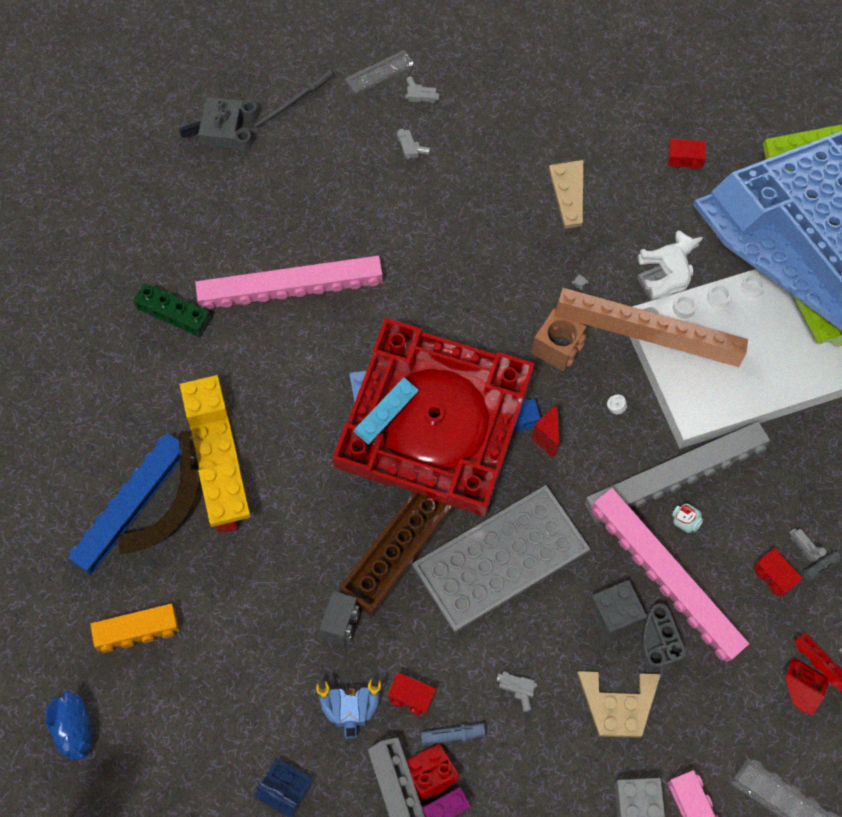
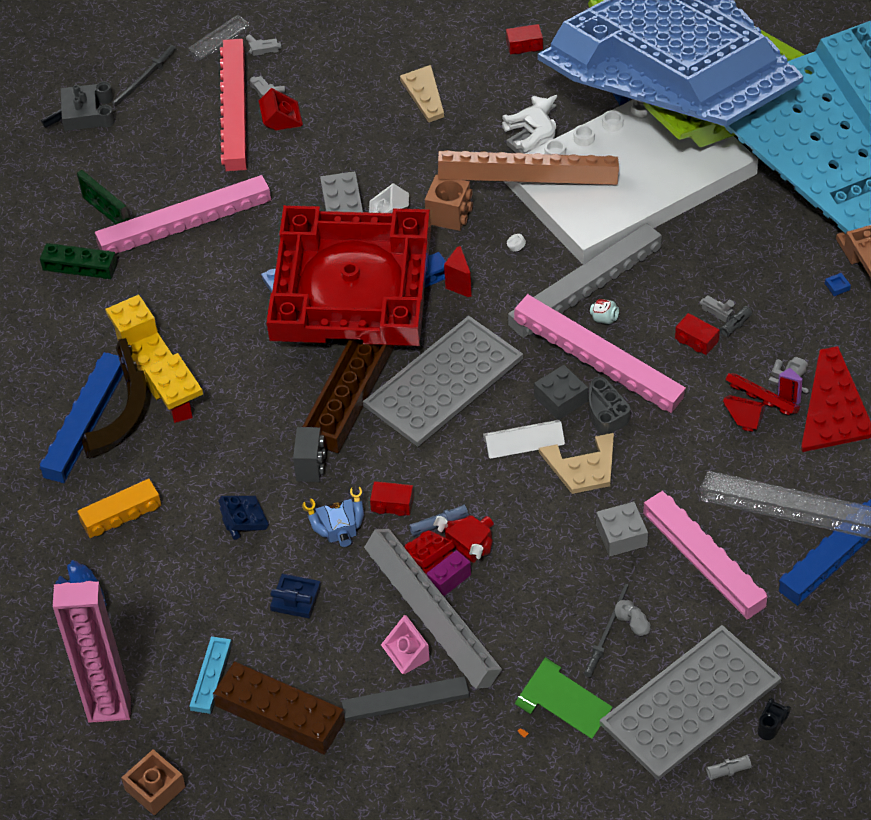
camera: 10 degrees left, 15 degrees down
(212, 244) = (102, 199): none -> dark green tile
(256, 670) = (242, 514): none -> dark blue plate
(373, 159) = (233, 105): none -> coral brick
(385, 411) = (305, 275): medium azure plate -> none
(417, 178) = (279, 111): none -> red slope
(452, 308) = (341, 192): none -> light grey brick
(479, 766) = (468, 535): none -> red torso
(496, 324) = (388, 199): none -> white slope
(521, 687) = (490, 472): light grey piece -> none
(566, 654) = (524, 438): none -> white panel

